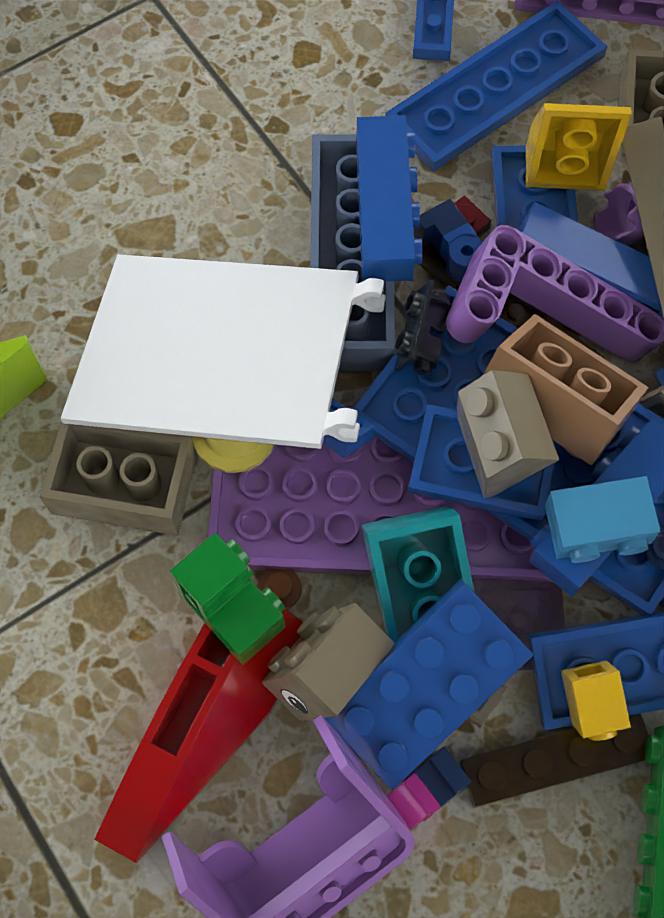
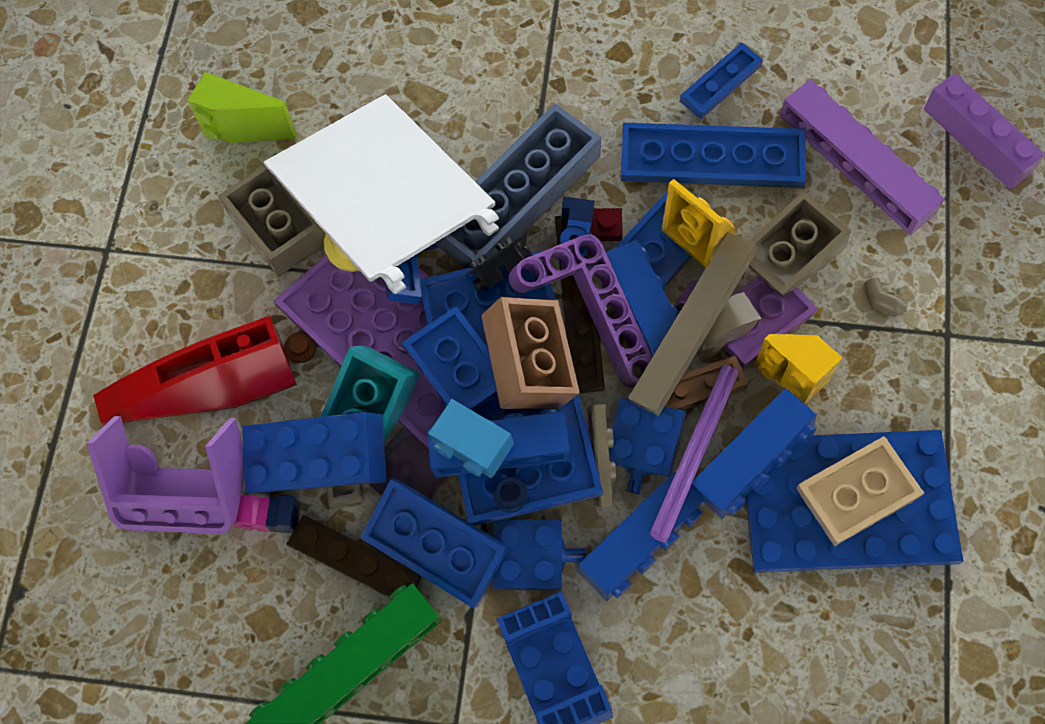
camera: 45 degrees right, 0 degrees up
(221, 592) = (248, 319): green brick -> none
(327, 662) = (274, 400): dark tan brick -> none
(385, 198) = (550, 171): blue brick -> none
(504, 430) = (462, 345): dark tan slope -> none
(596, 700) = (391, 540): yellow brick -> none

